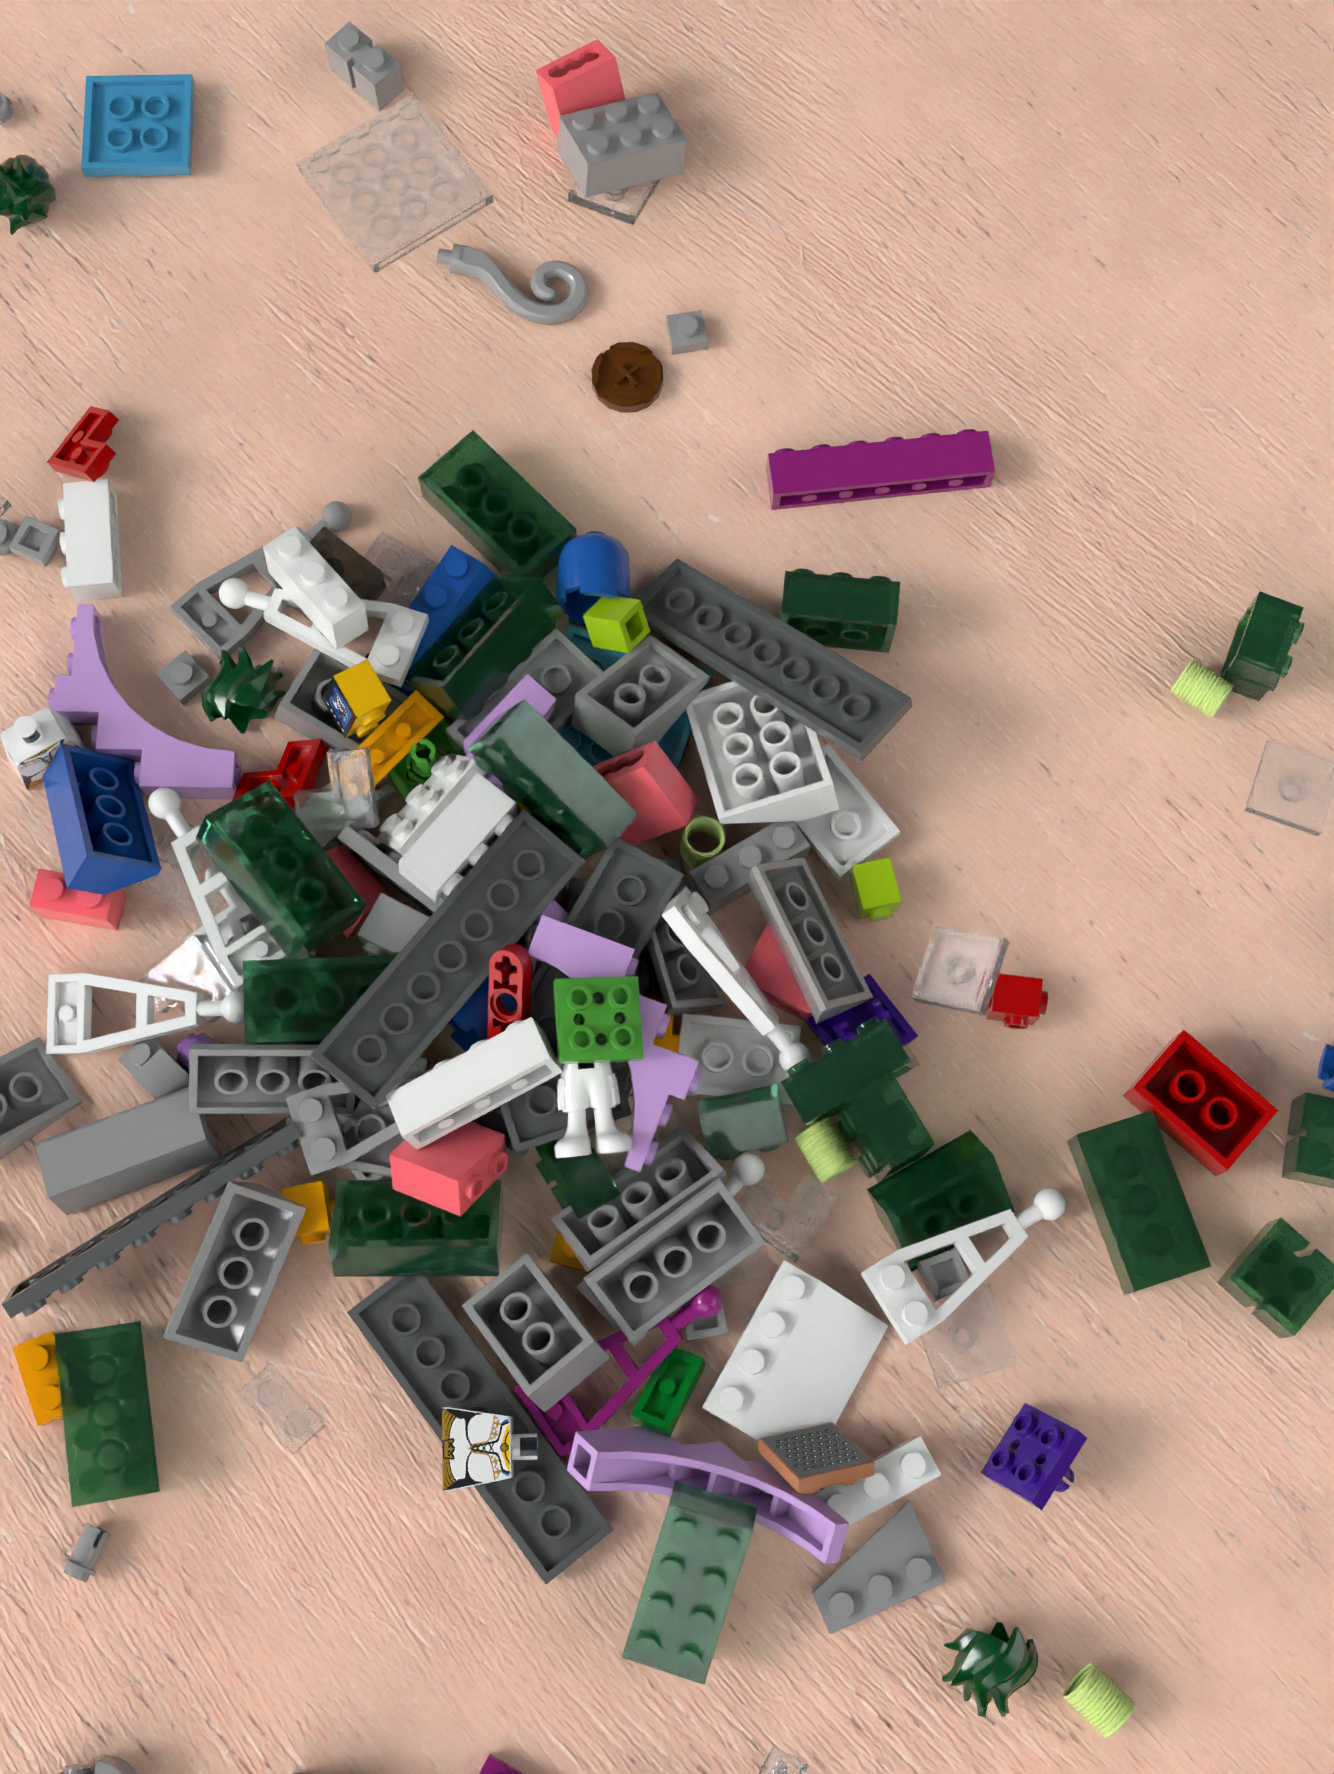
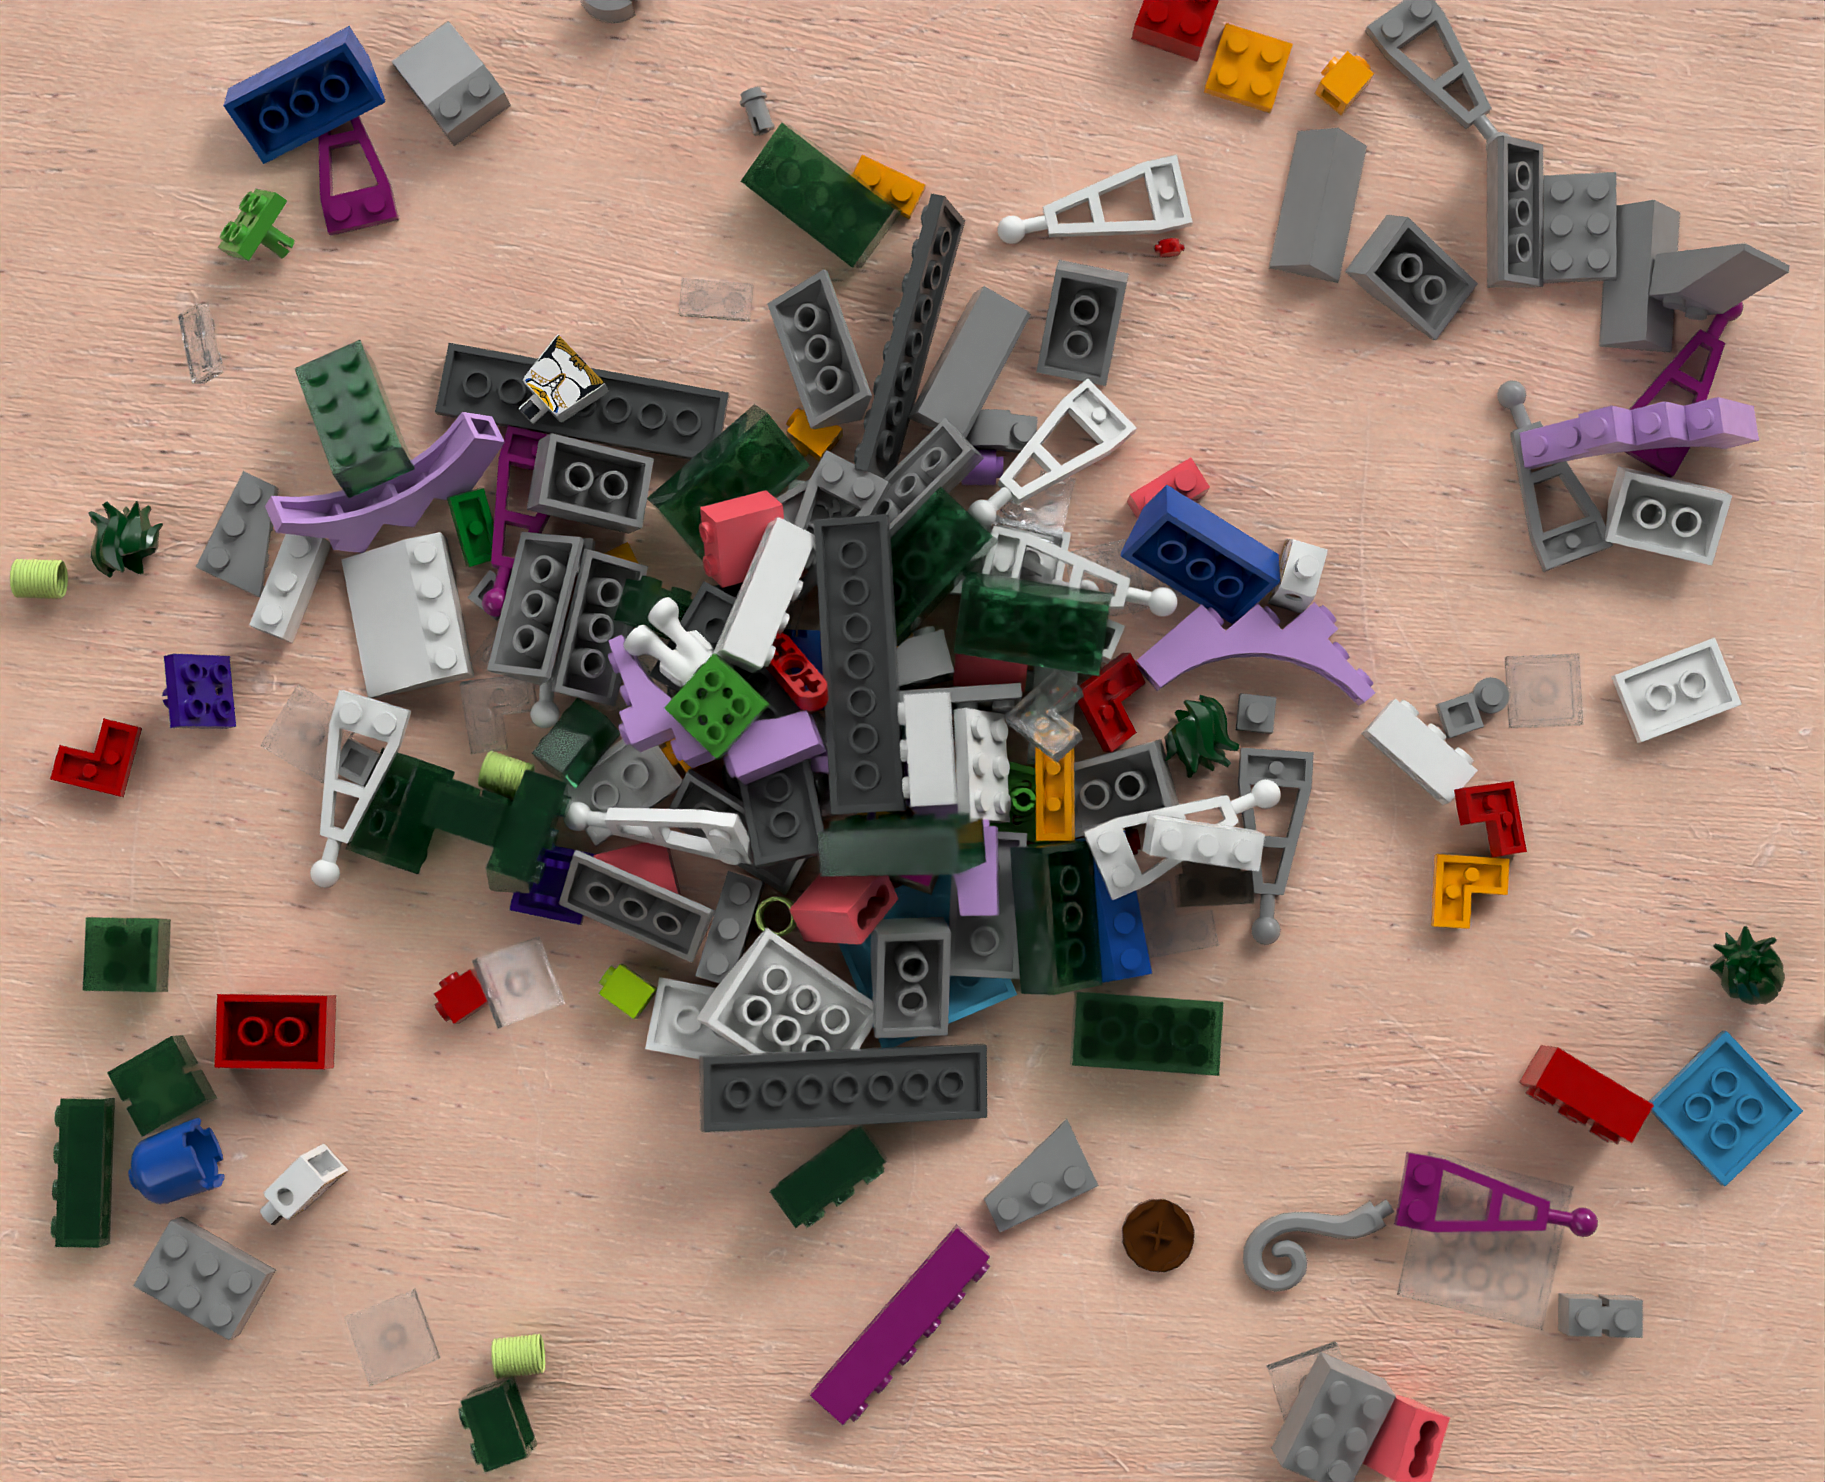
camera: 140 degrees right, 10 degrees up
(164, 428) = (1456, 880): none -> light orange plate
(224, 203) = (1585, 1095): none -> red brick
(356, 700) = (1098, 789): yellow brick -> none
(401, 243) = (1421, 1193): none -> magenta plate
(591, 569) = (1030, 1043): blue cylinder -> none
(616, 624) = (977, 1019): lime brick -> none
(675, 482) = (1042, 1181): none -> light grey wing
(687, 332) = (1147, 1313): light grey plate -> none
(816, 1458) = (338, 563): tile -> none
(1138, 1202) = (264, 925): clear green brick -> none
(1172, 1466) = (106, 768): none -> red plate
(1274, 960) = (301, 1184): none -> white torso

